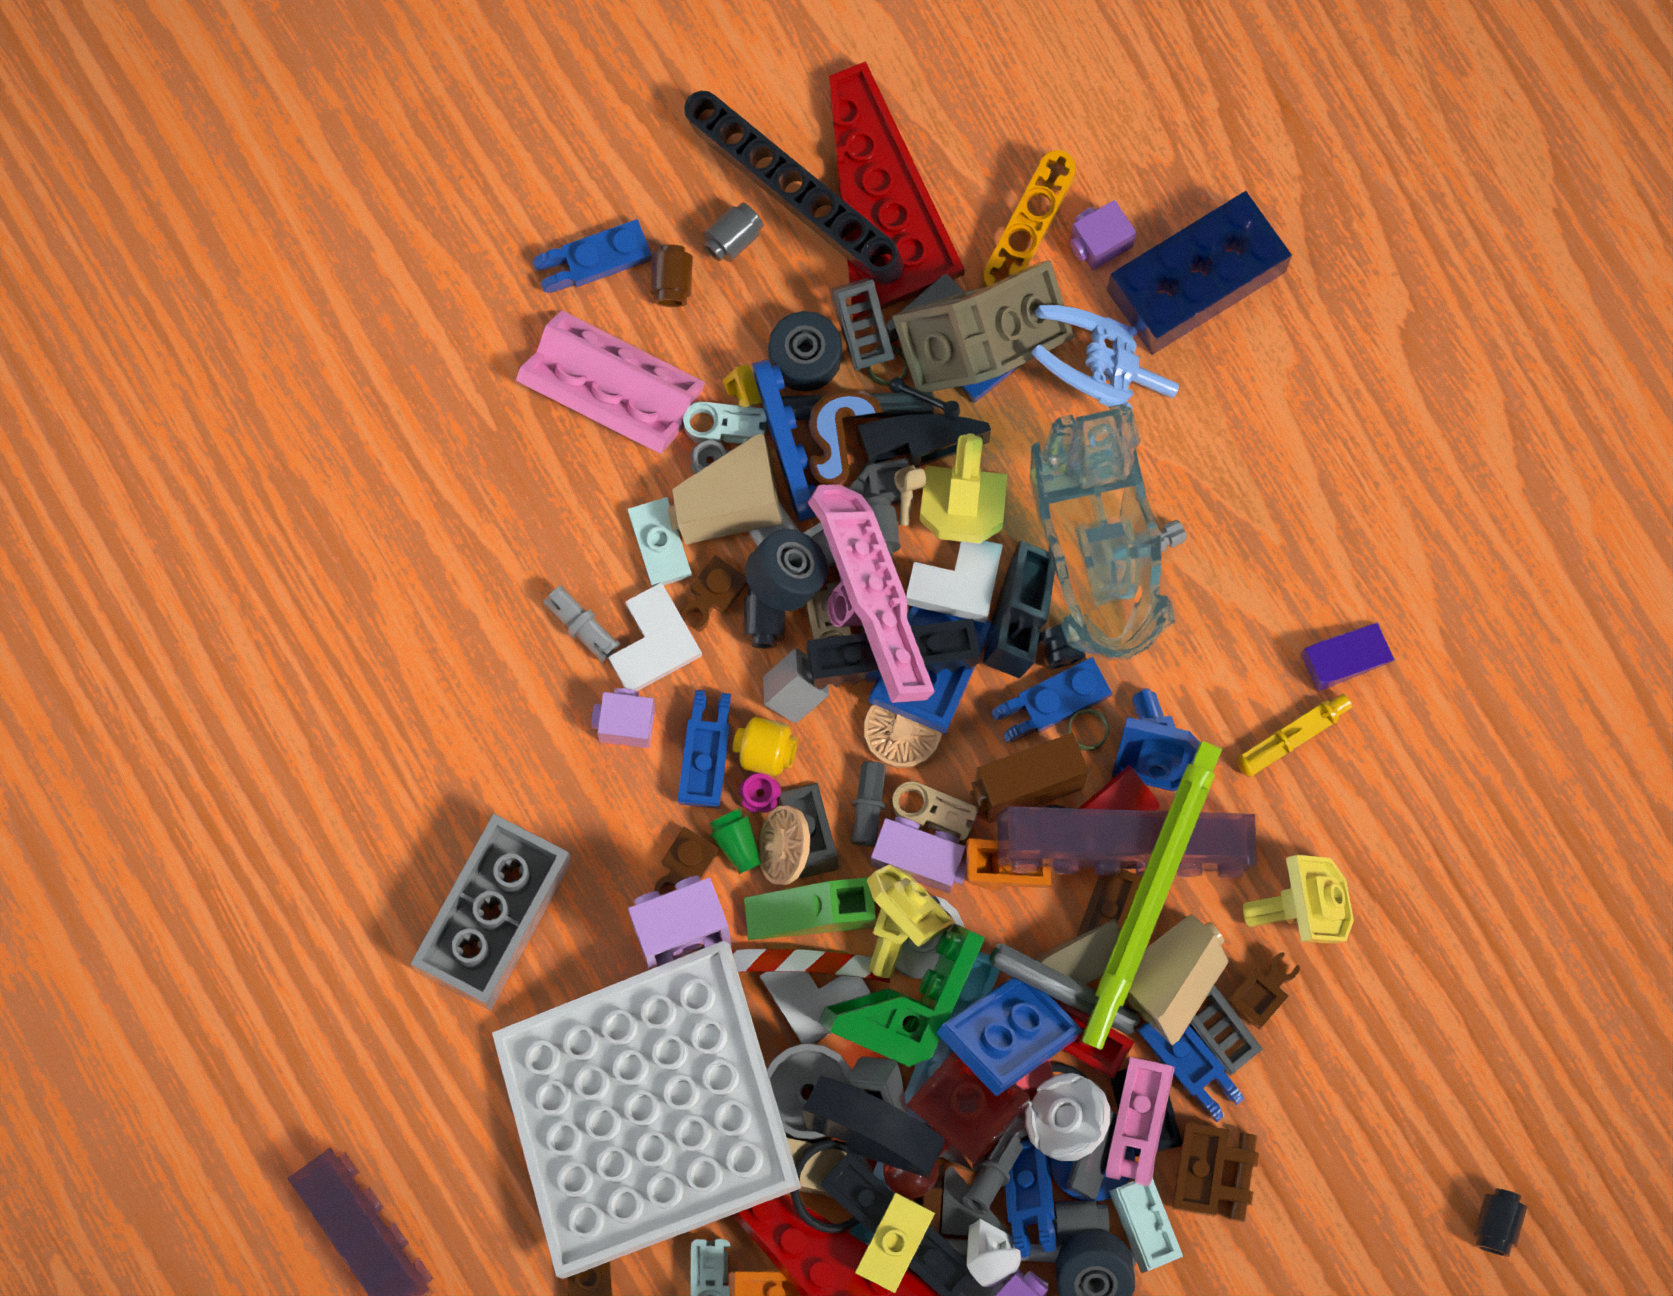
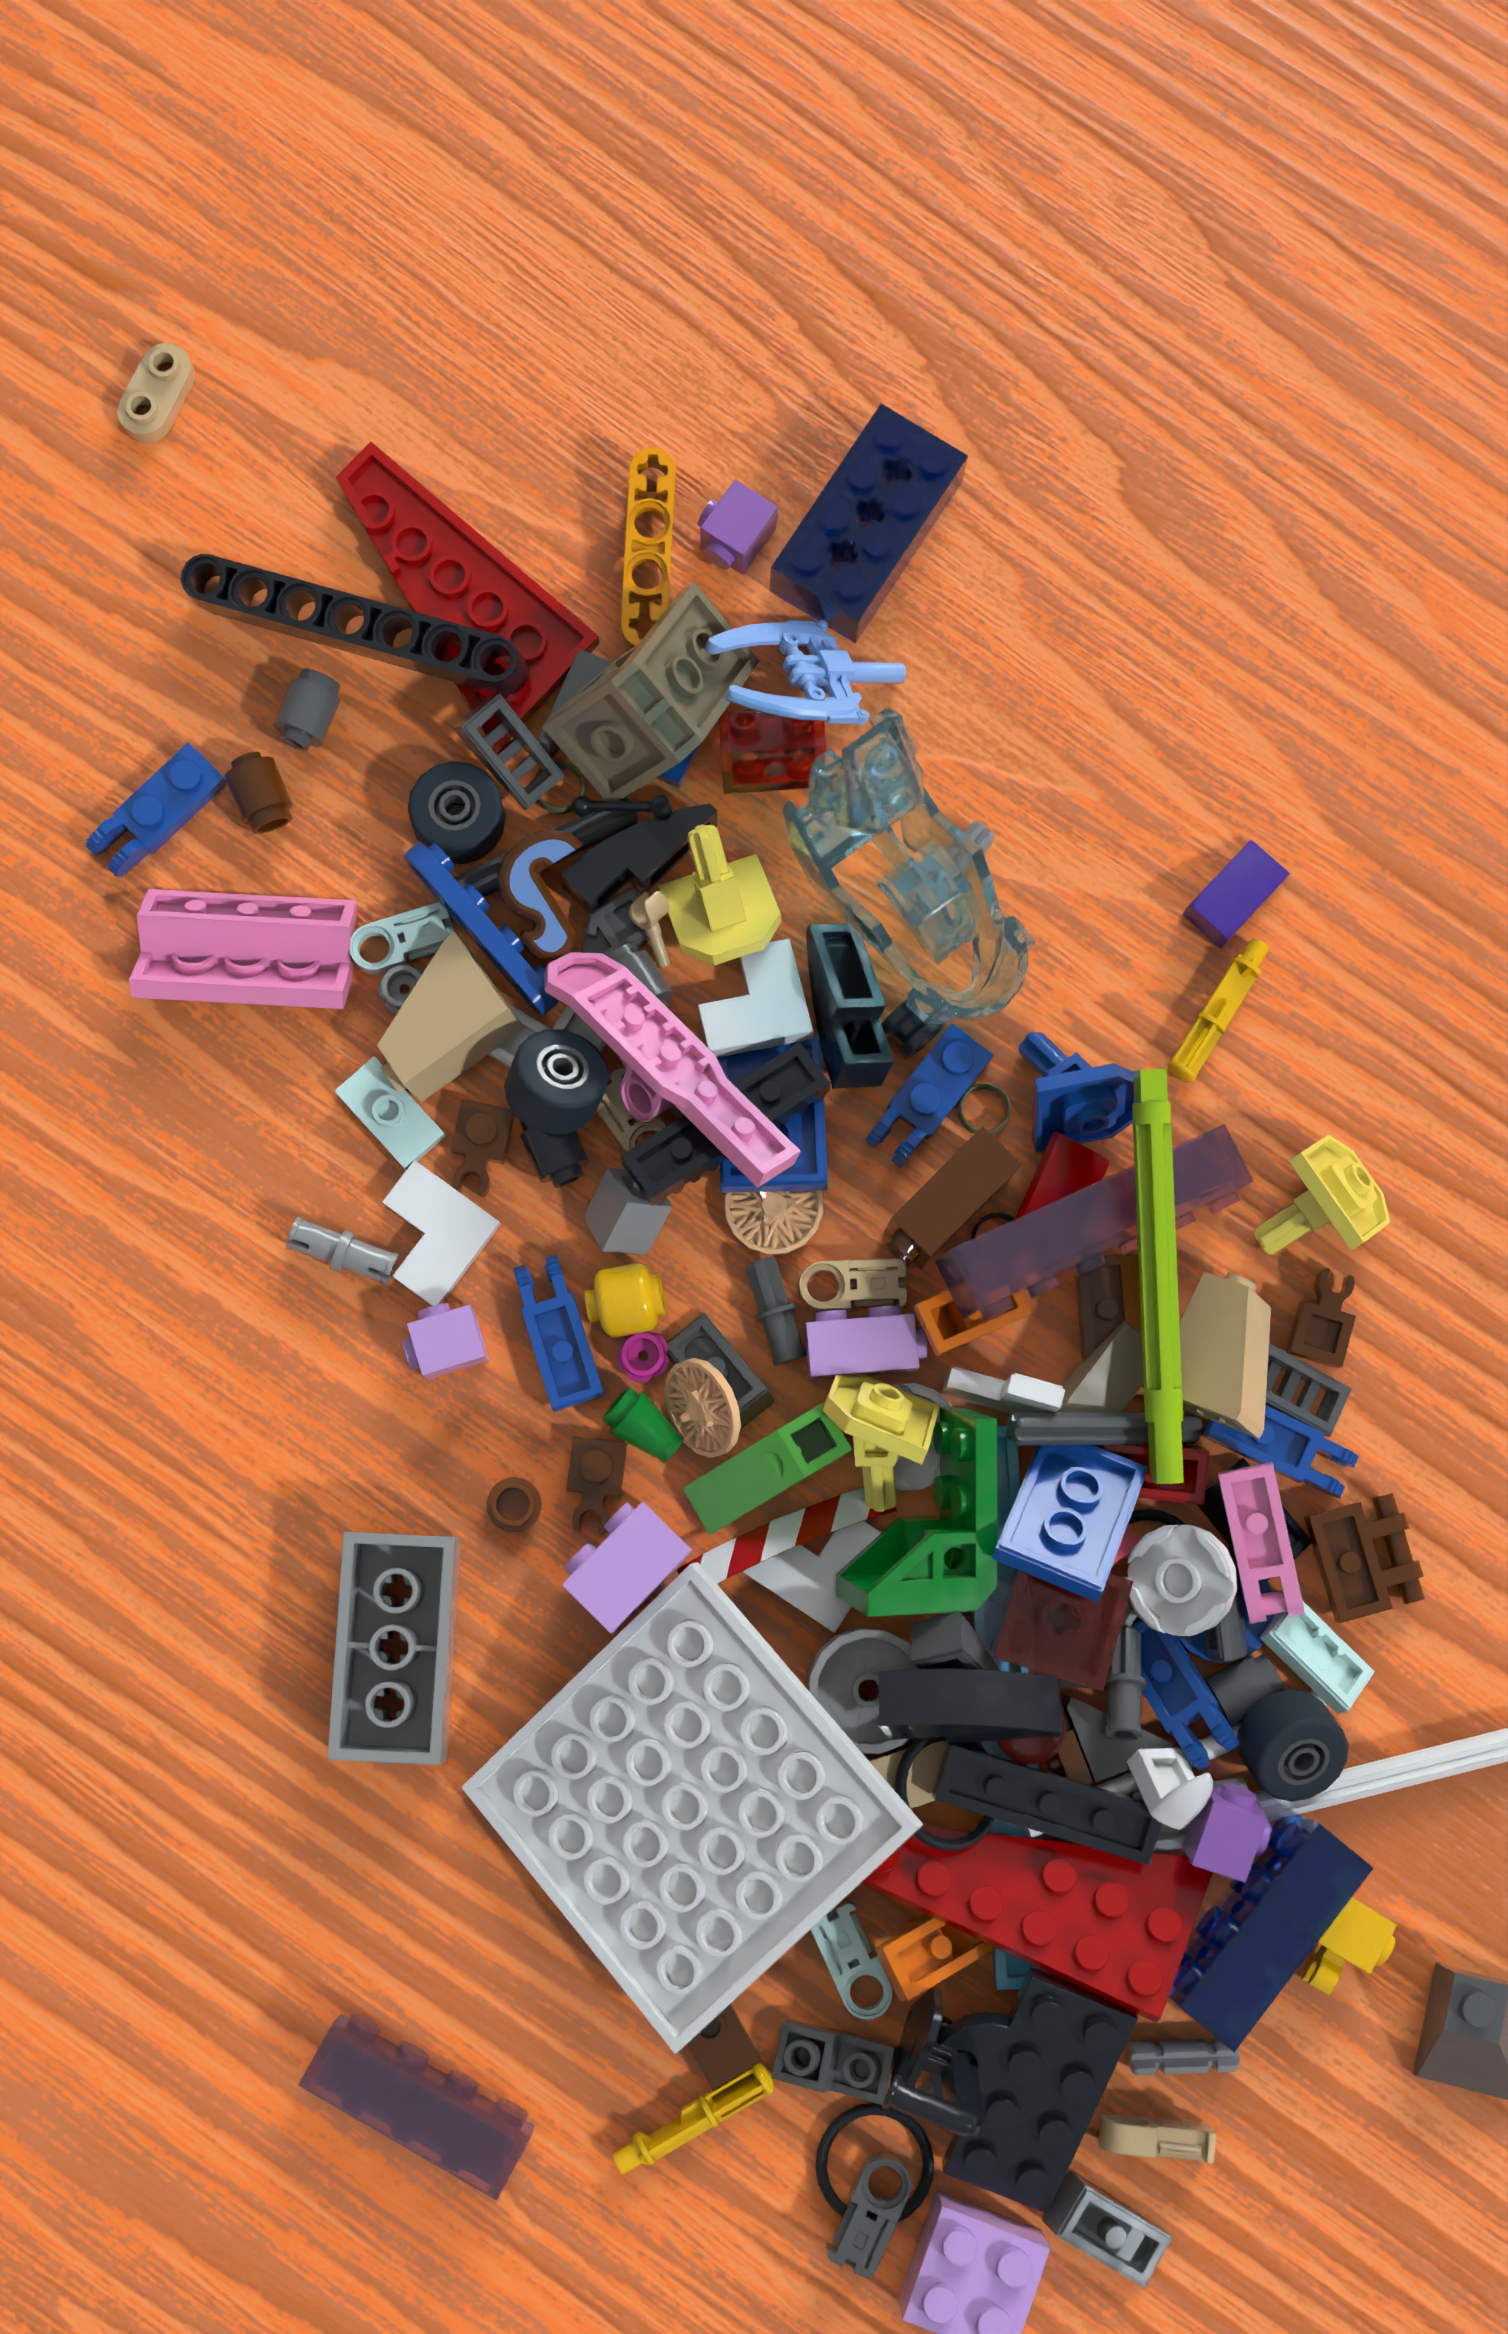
camera: 30 degrees left, 5 degrees up
(619, 855) = (514, 1504): none -> dark orange plate
(743, 385) = (403, 885): yellow tile -> none
(895, 1242) = (1055, 1827): light yellow plate -> none
(997, 930) = (1014, 1395): none -> white tile
(1042, 398) = (768, 751): none -> clear red brick

